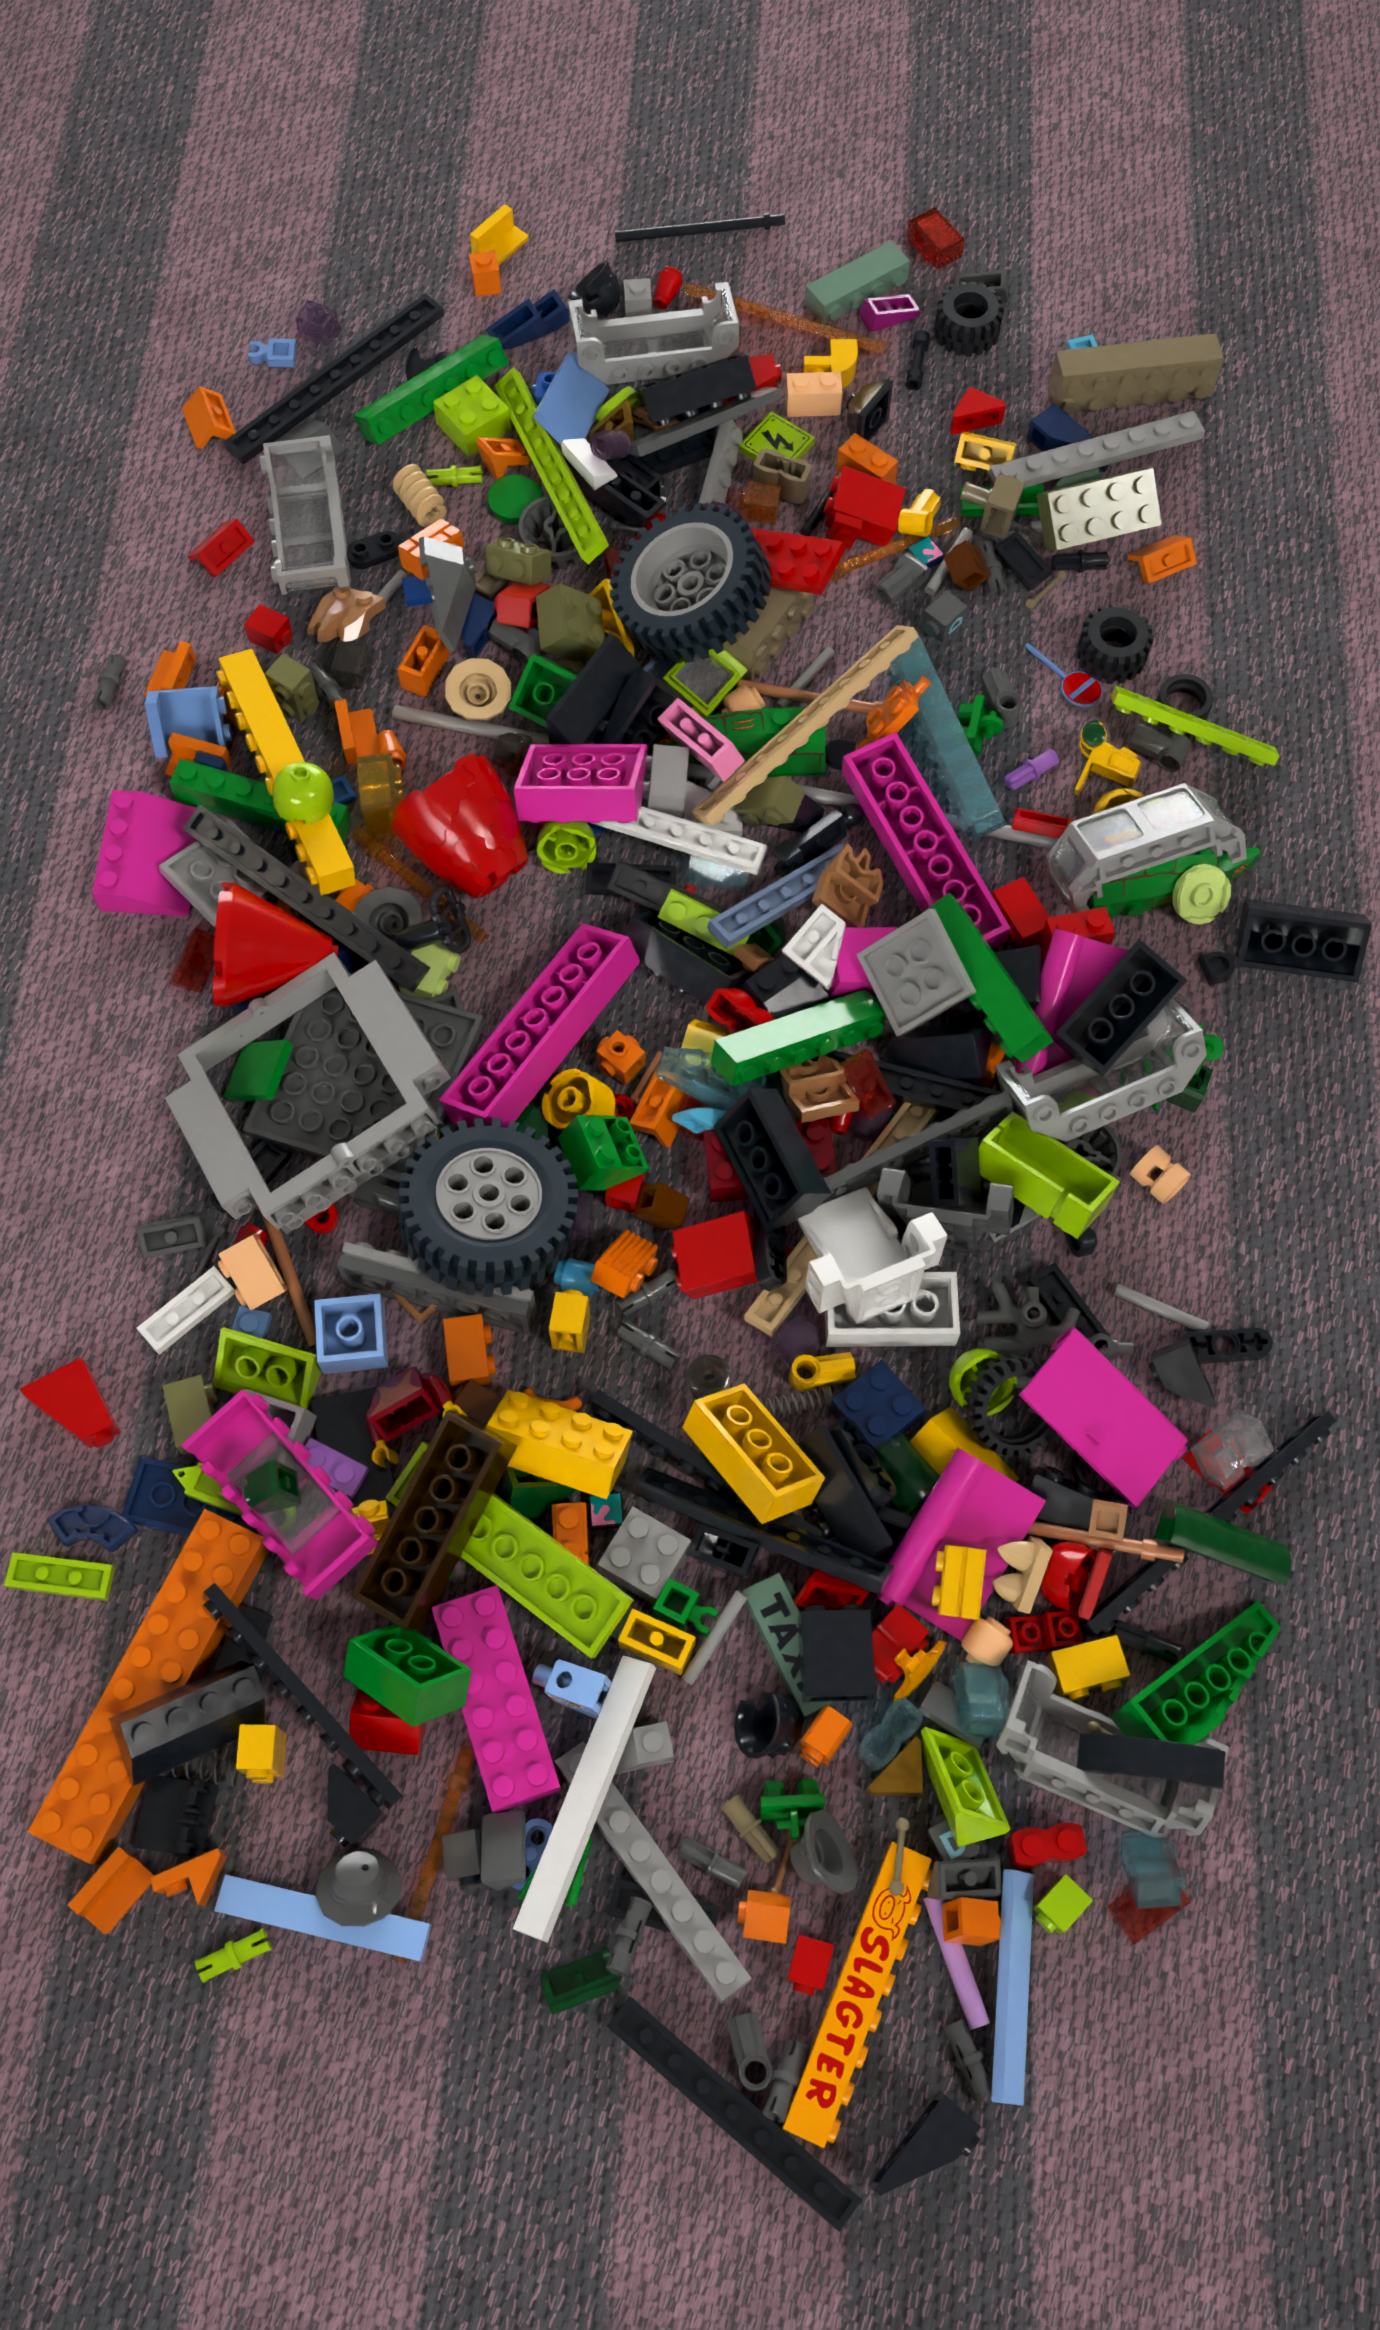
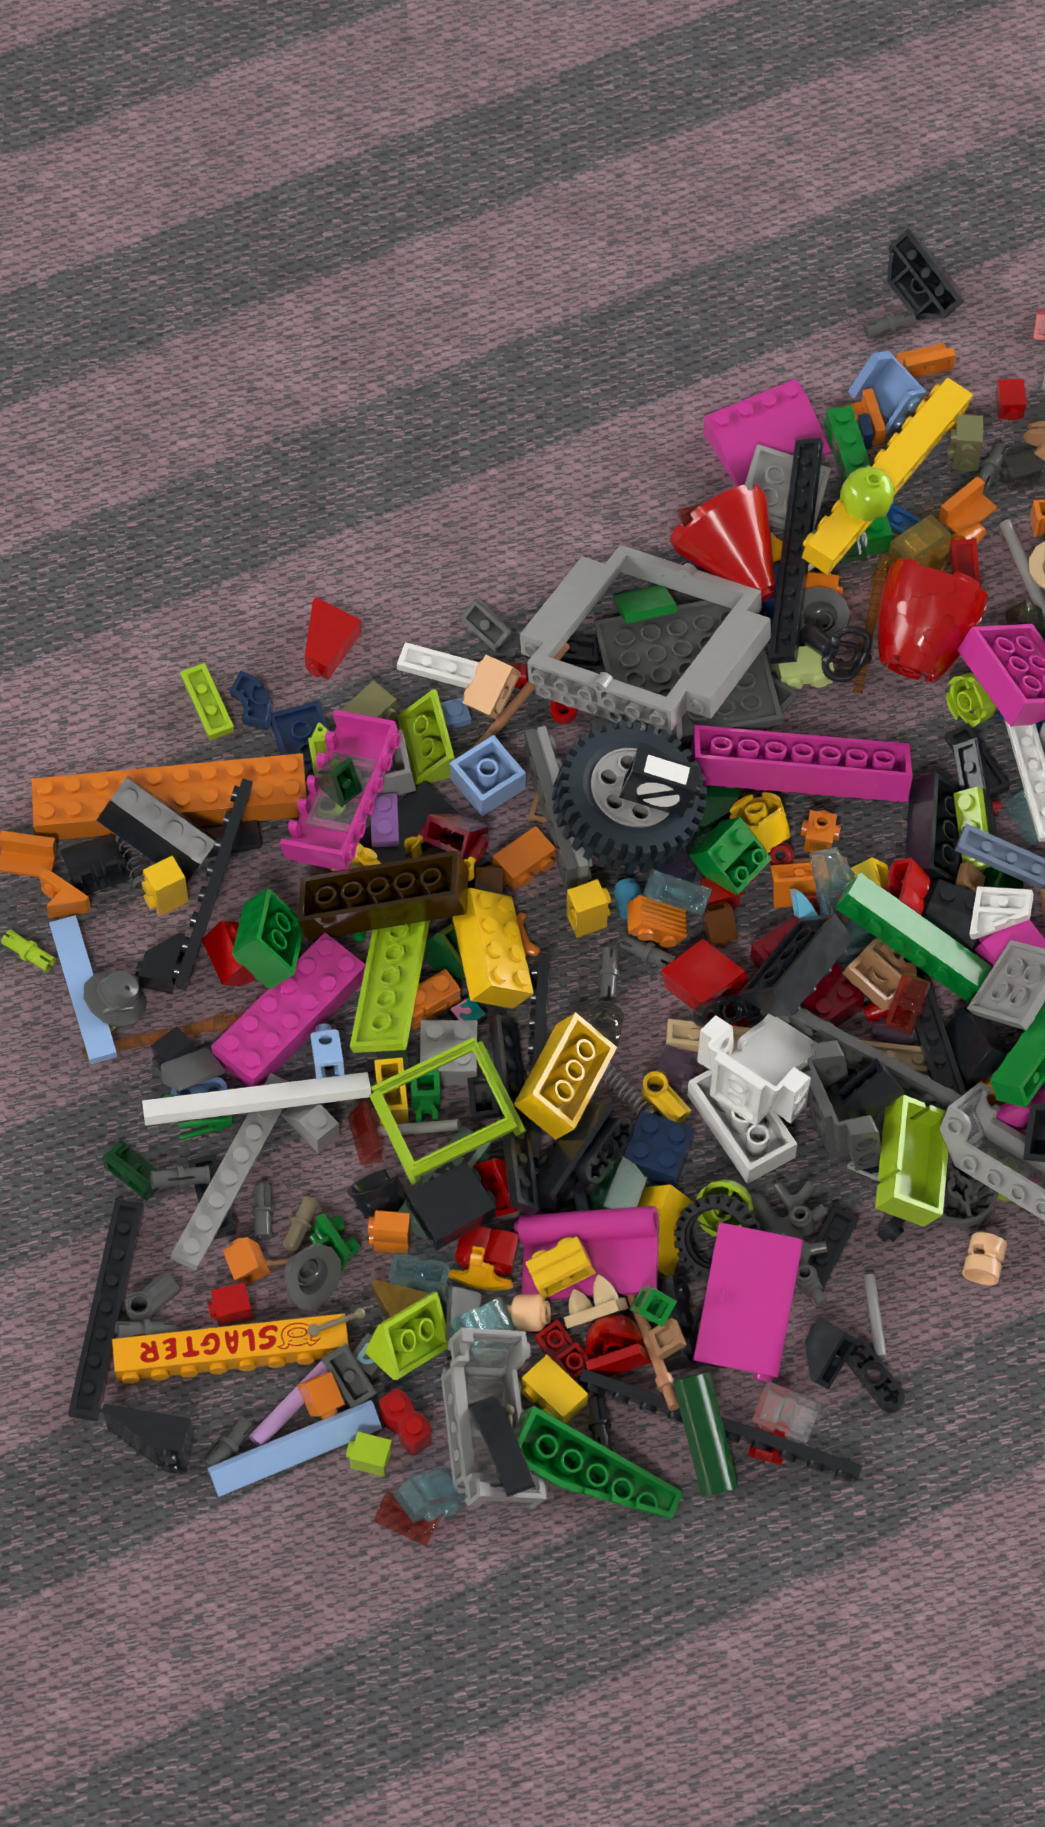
camera: 60 degrees right, 5 degrees down
(85, 626) = (921, 279): none -> black wedge
(417, 766) = (965, 558): none -> red tile
(511, 1162) = (661, 783): none -> black brick
(612, 1224) = (677, 892): none -> clear light blue brick
(684, 1699) = (364, 1134): none -> clear red slope
(786, 1609) = (463, 1146): none -> lime piece
(1068, 1513) = (653, 1305): none -> green brick

